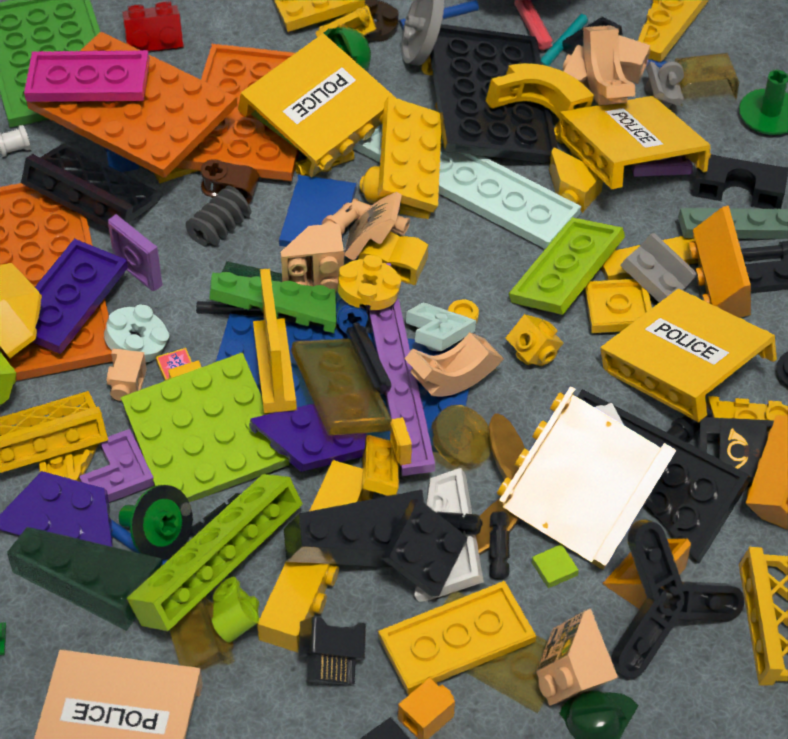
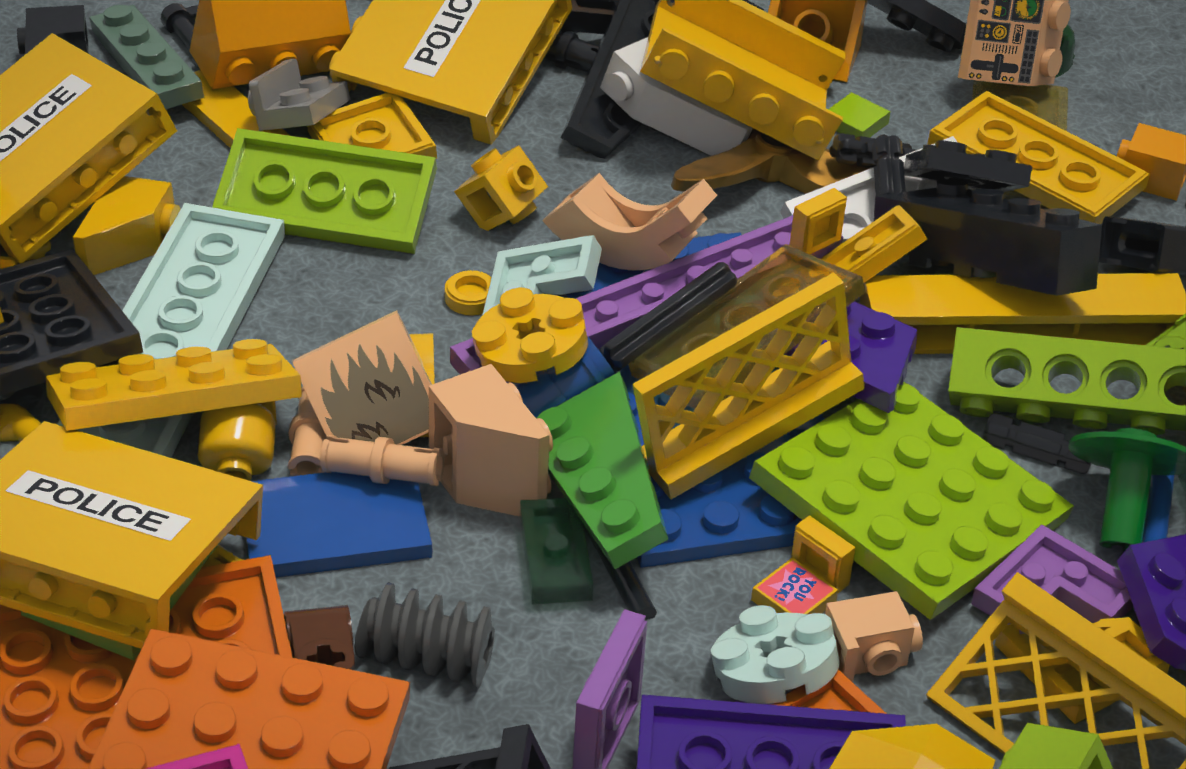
camera: 115 degrees left, 10 degrees down
(461, 436) = (732, 220): clear yellow tile -> none

